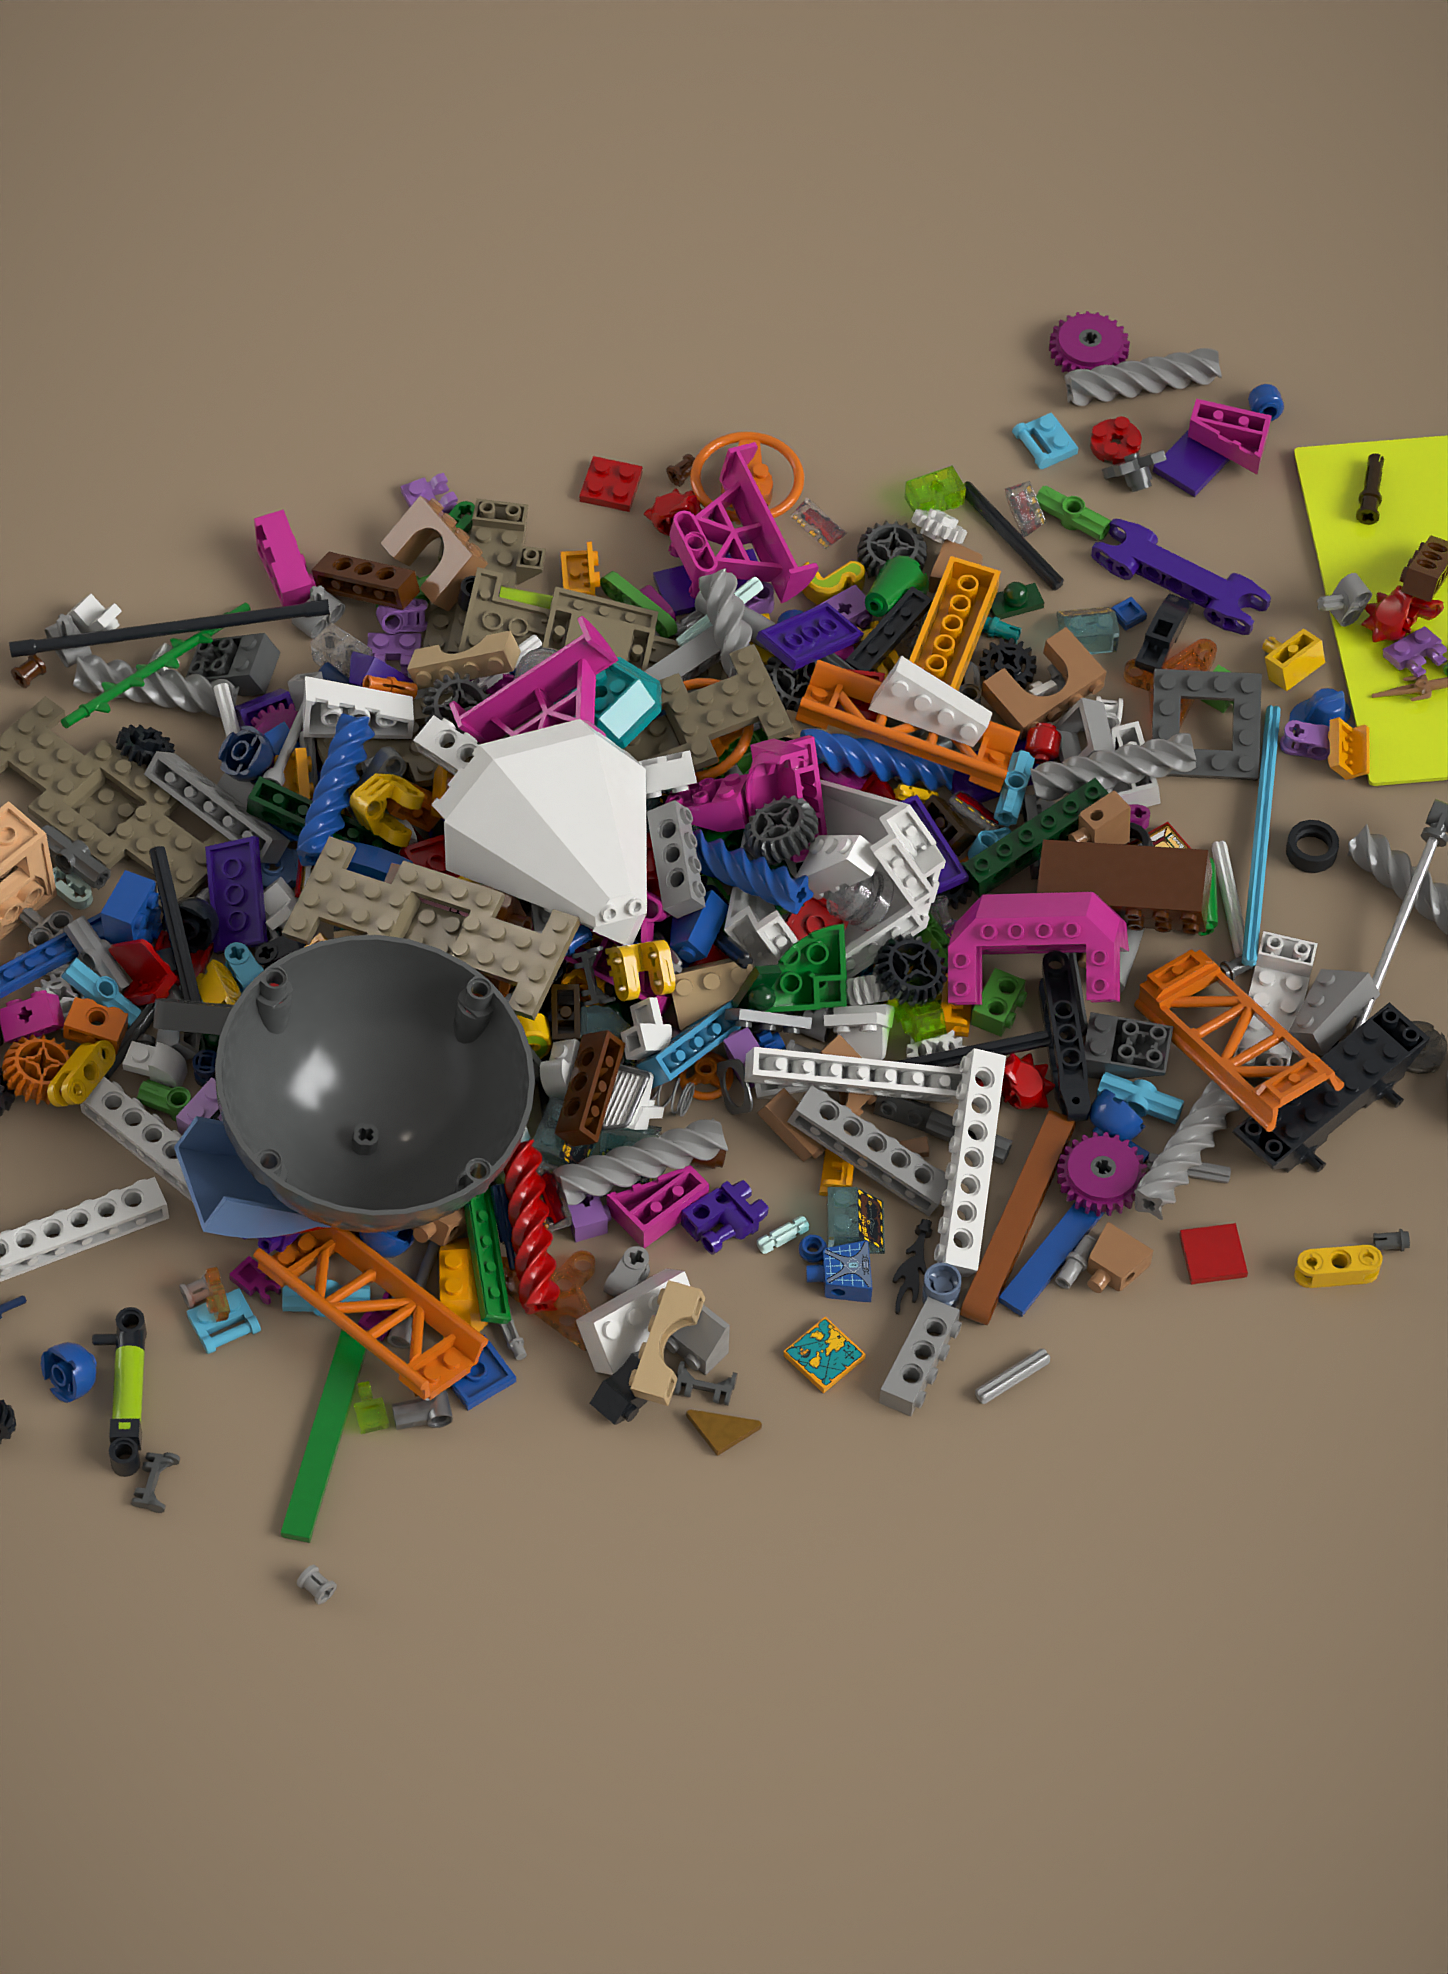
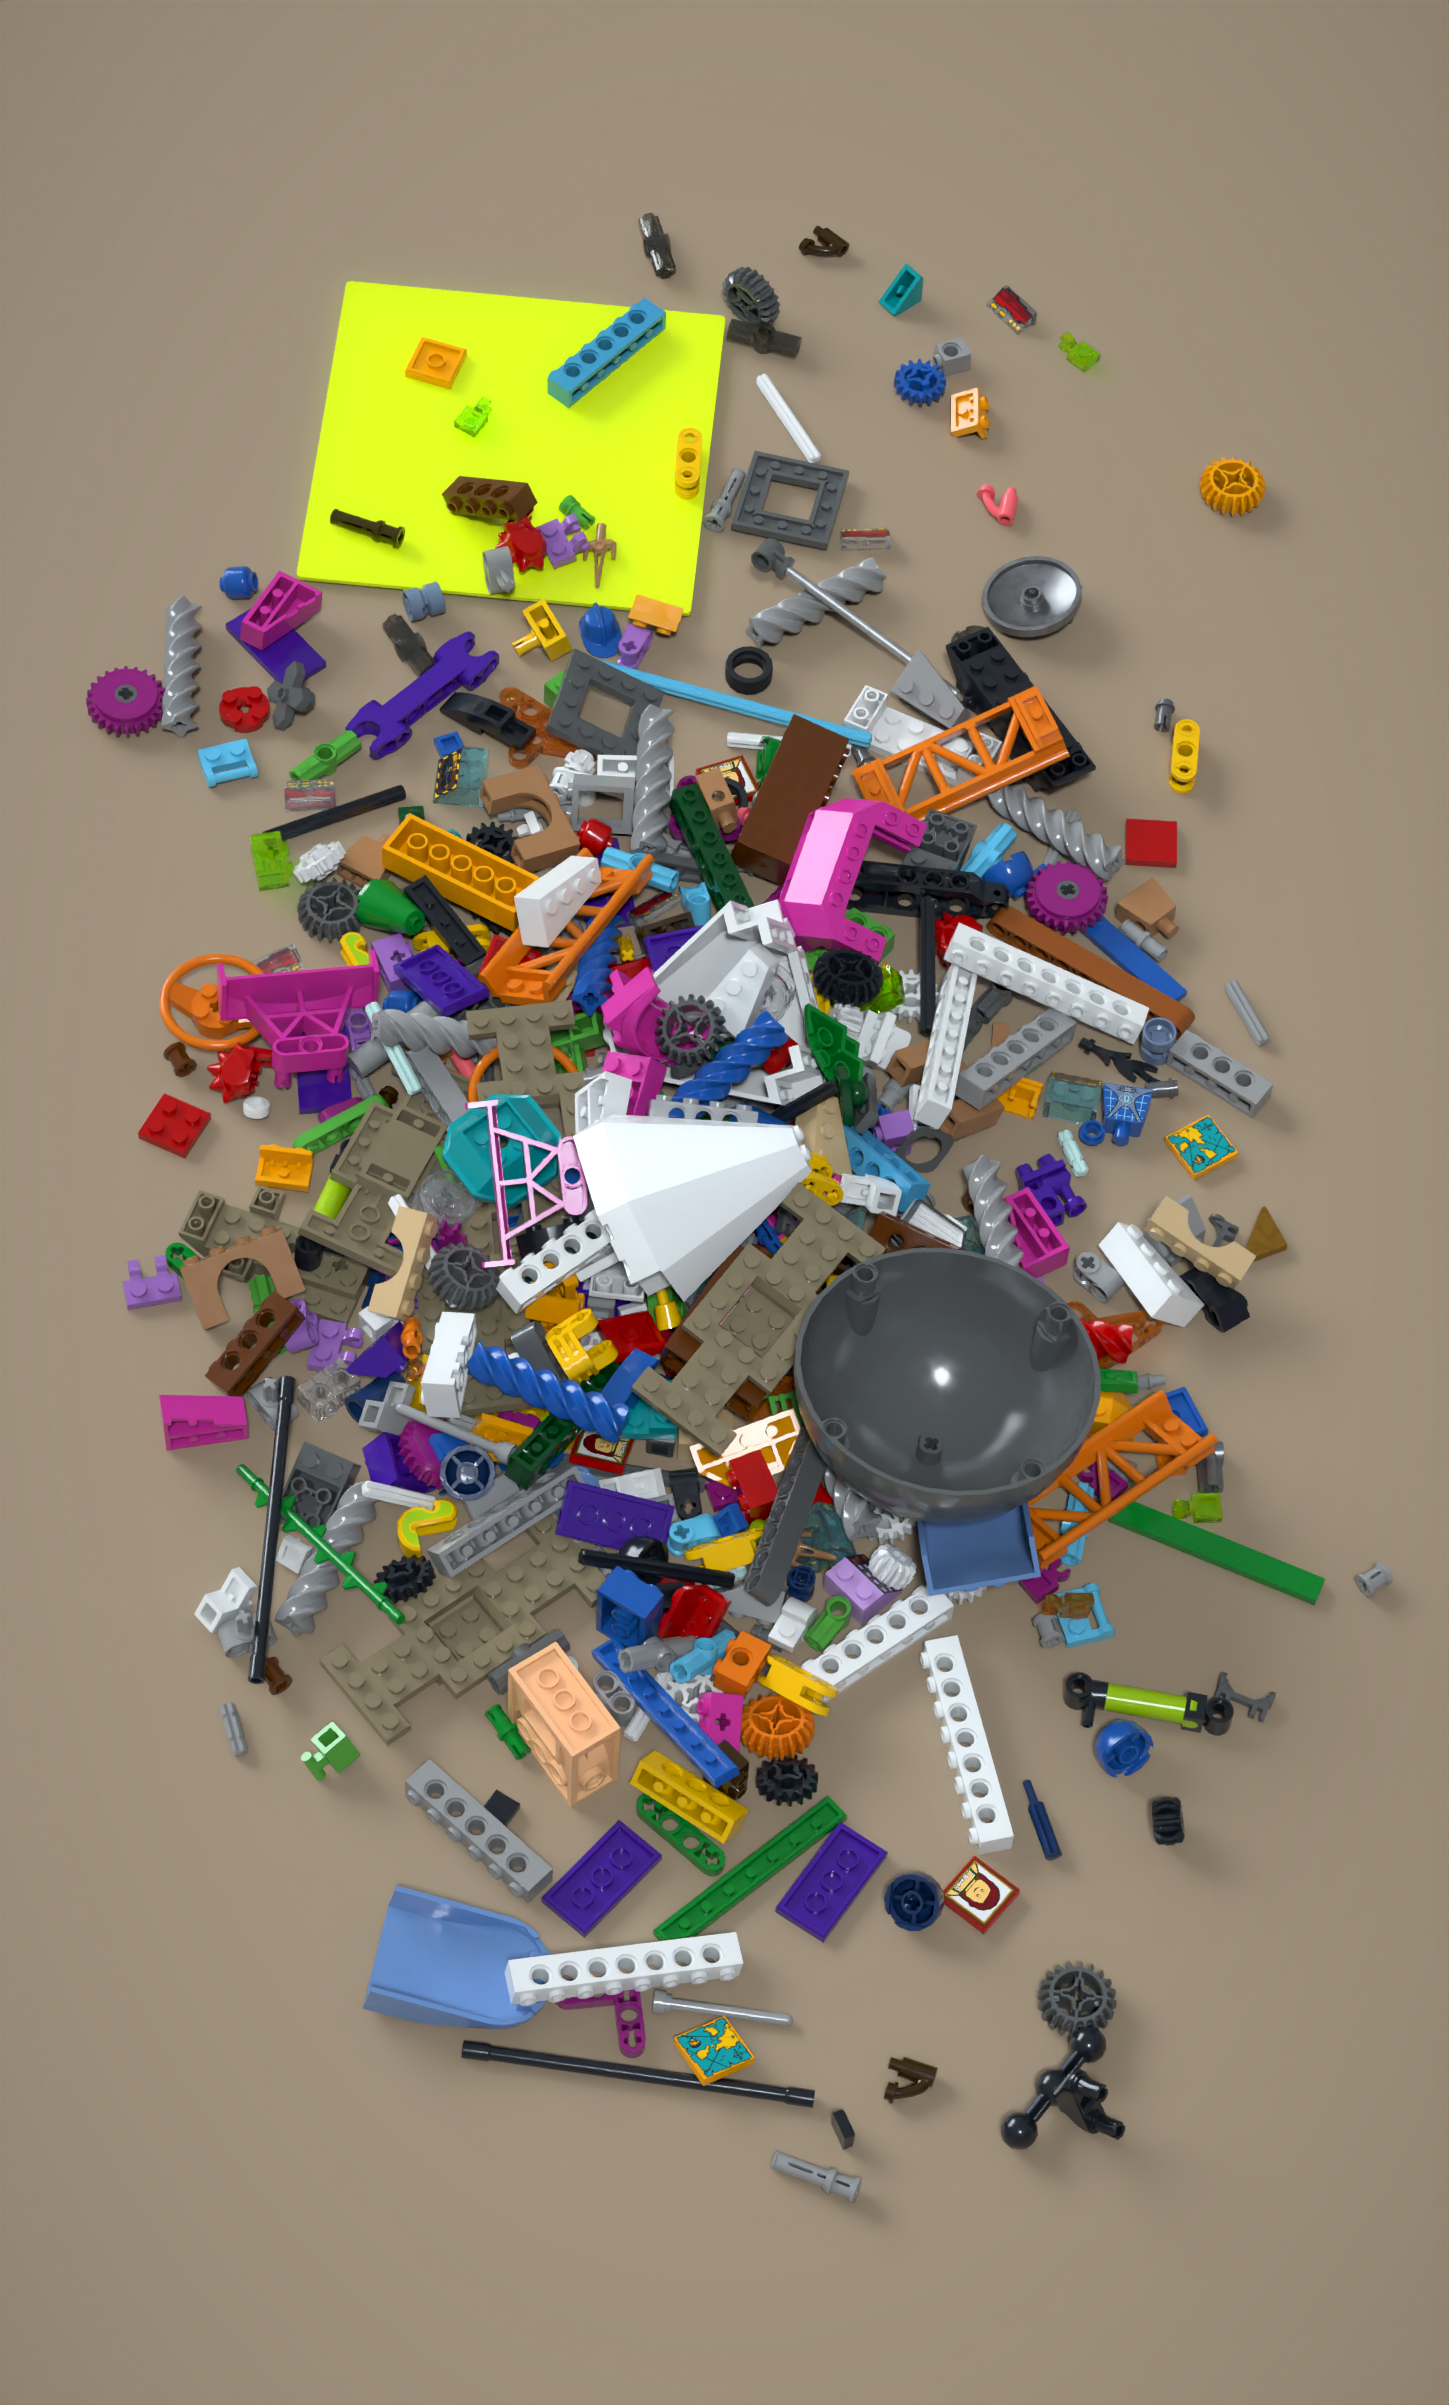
camera: 80 degrees left, 0 degrees up
(202, 742) = (423, 1522): none -> yellow animal
(646, 539) = (256, 1107): none -> white tile
(889, 1312) = (1163, 1088): none -> dark grey pin
(1136, 713) = (580, 761): none -> white gear
(1240, 554) = (408, 645): none -> clear smoke piece
(1296, 552) = (423, 601): none -> sand blue wheel

